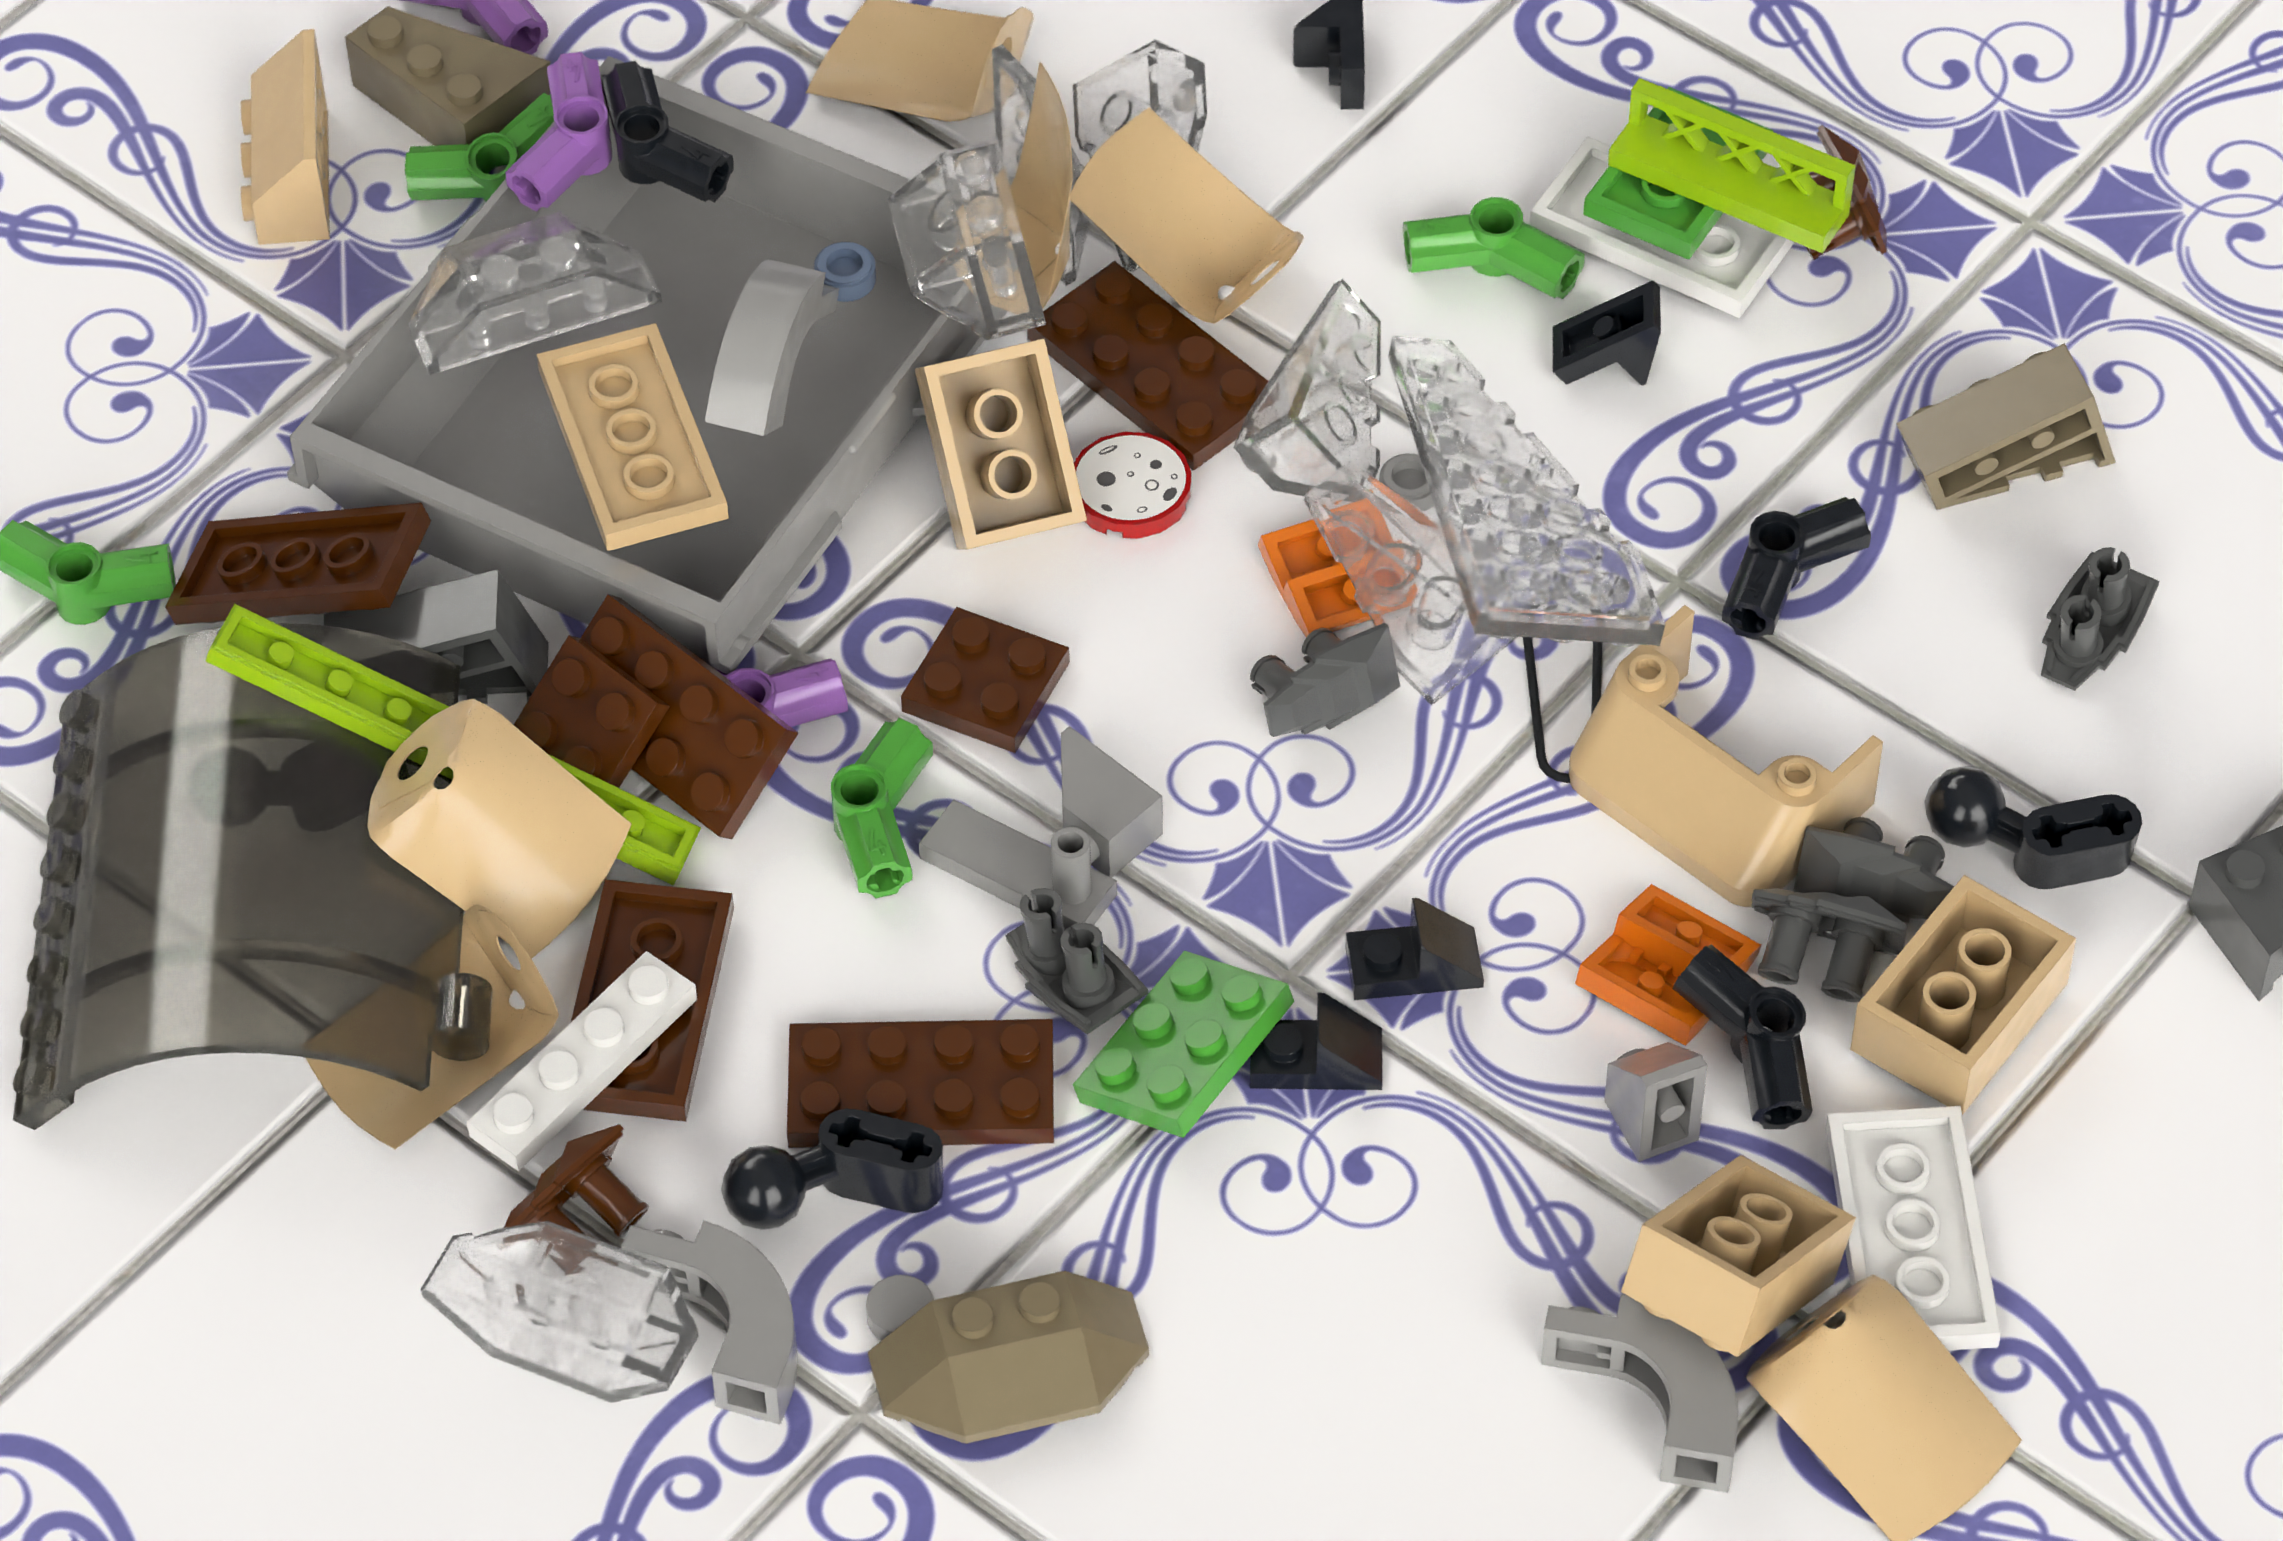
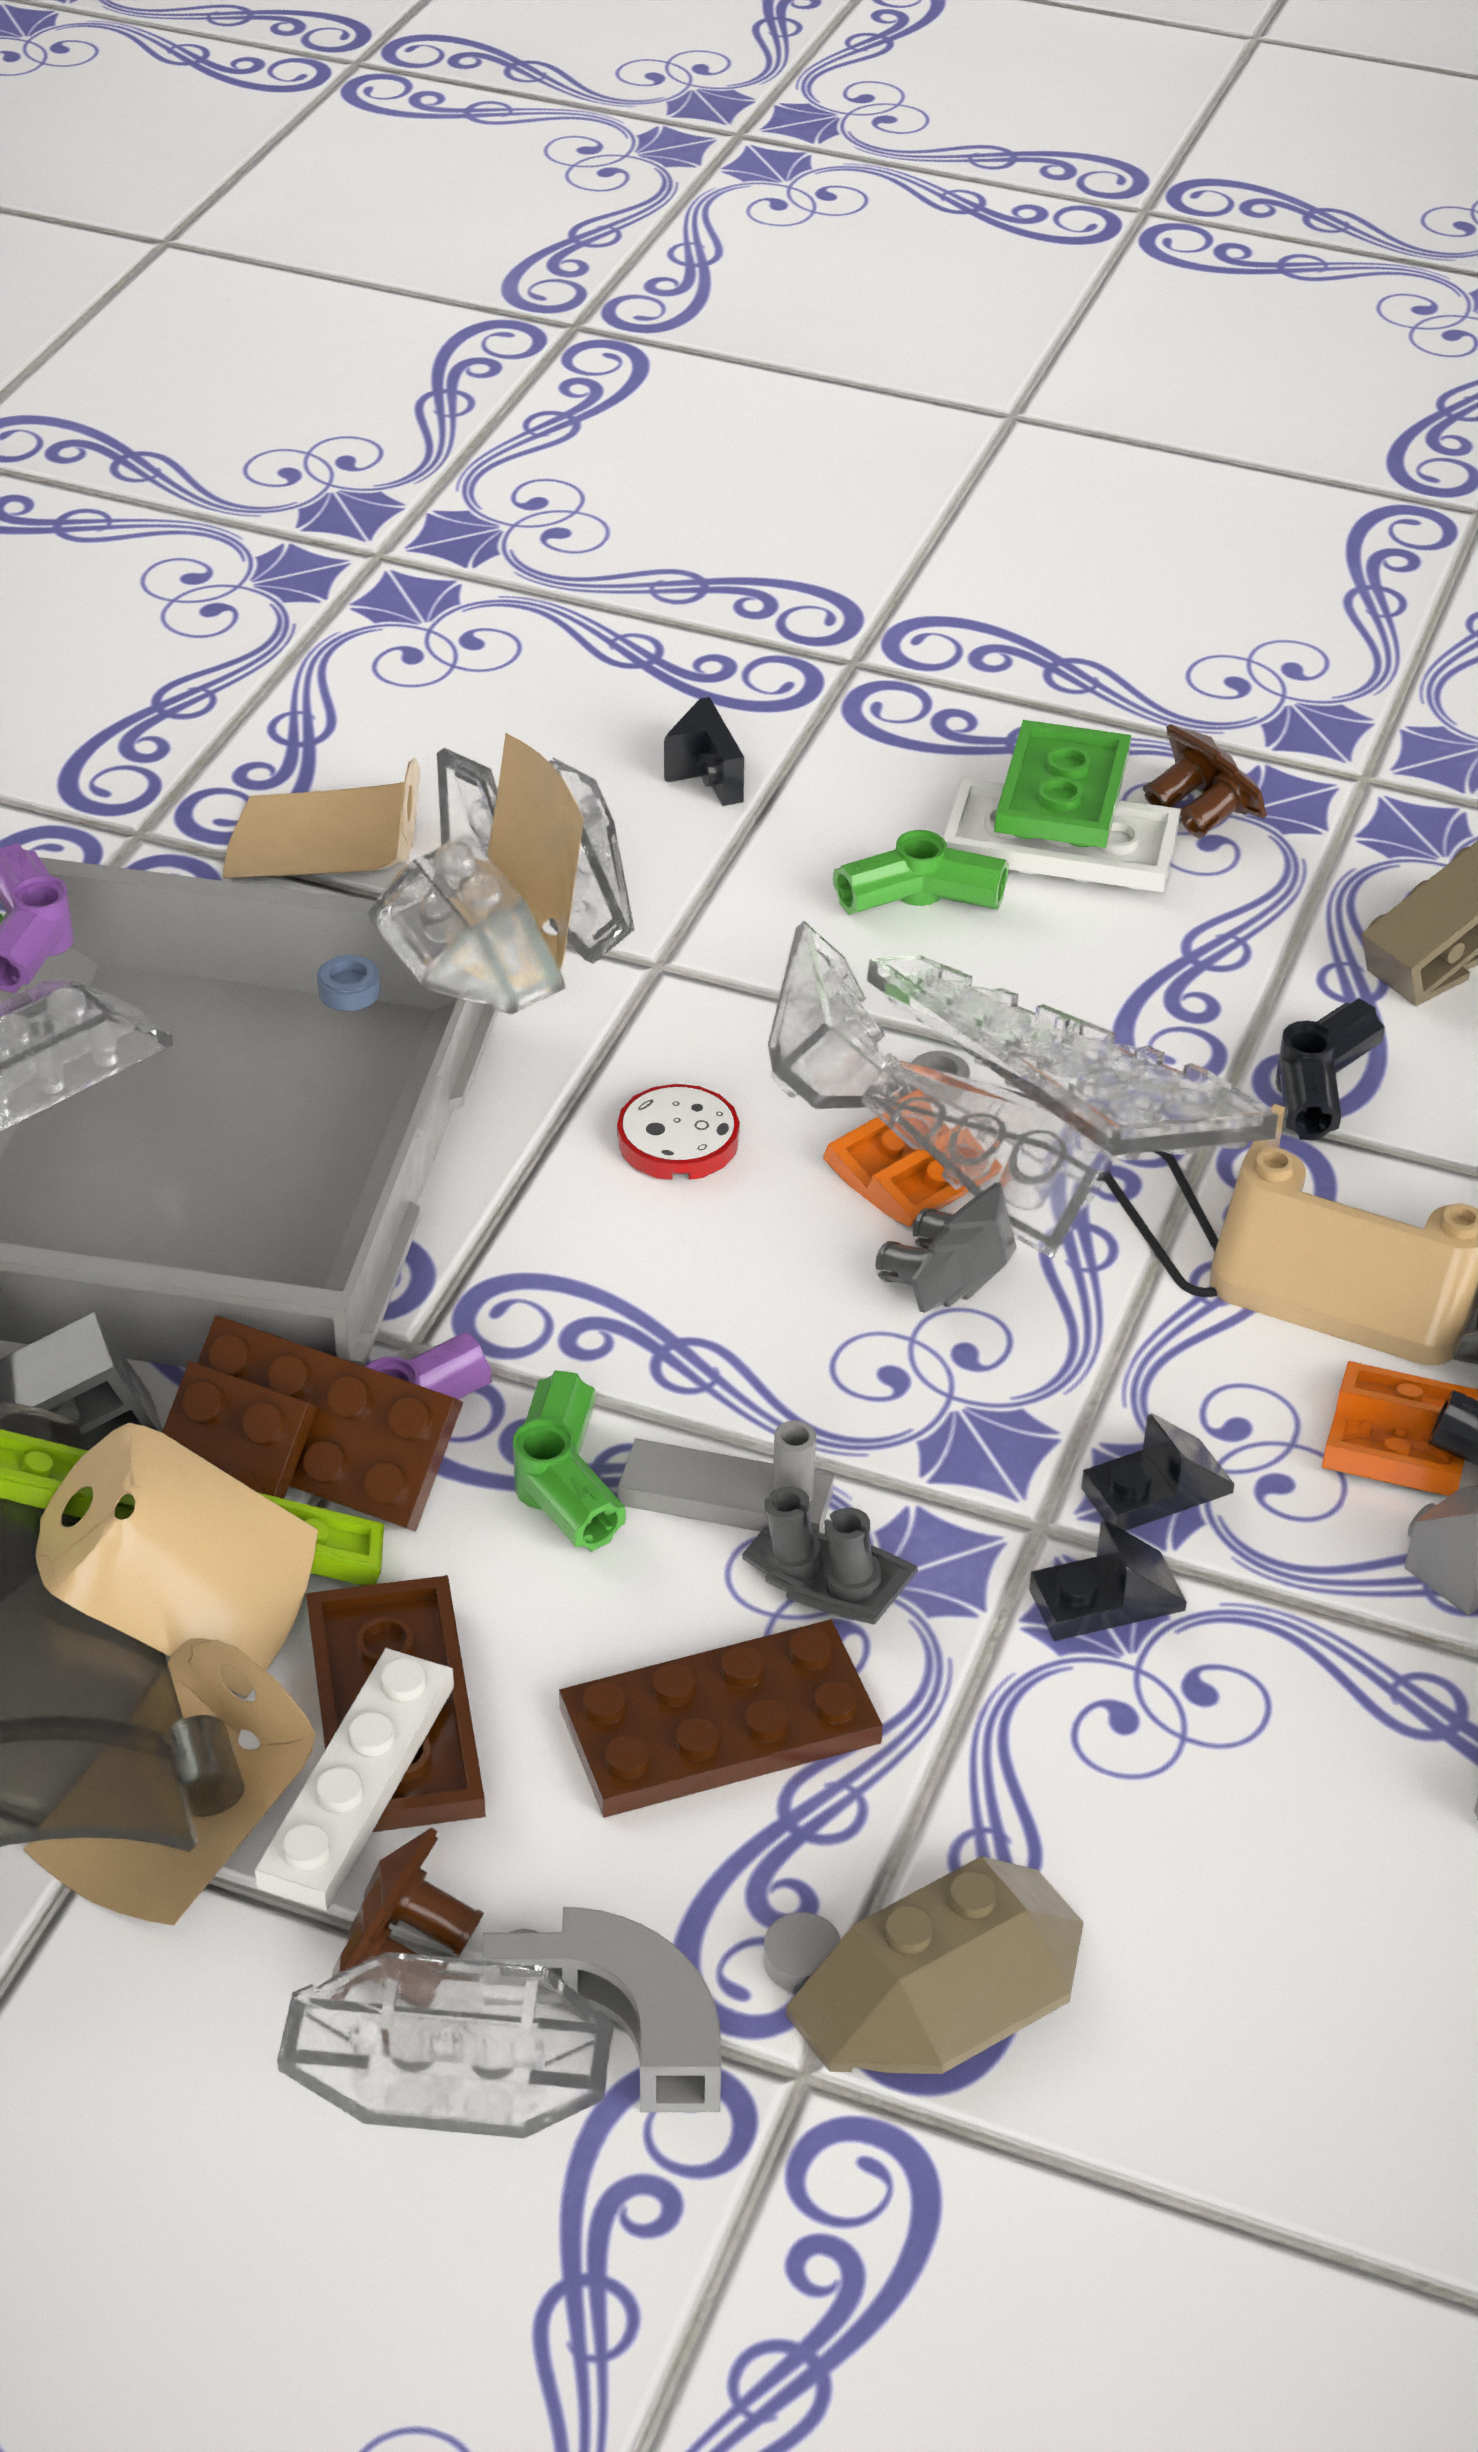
camera: 20 degrees left, 10 degrees down
(632, 437) = (196, 1160): tan plate -> none
(650, 147) = (116, 914): black piece -> none
(763, 345) = (306, 1048): light grey arch -> none
(856, 1158) = (693, 1805): black beam -> none
(985, 679) = (614, 1326): reddish brown plate -> none
(1000, 444) = (555, 1105): tan brick -> none
(1107, 803) = (776, 1389): light grey slope -> none
(1151, 363) = (650, 1029): reddish brown plate -> none
(1181, 218) = (654, 903): tan piece -> none
(1183, 1043) = (977, 1610): bright green plate -> none
(1612, 332) = (1078, 910): black slope -> none
(1733, 175) = (1121, 768): lime fence -> none

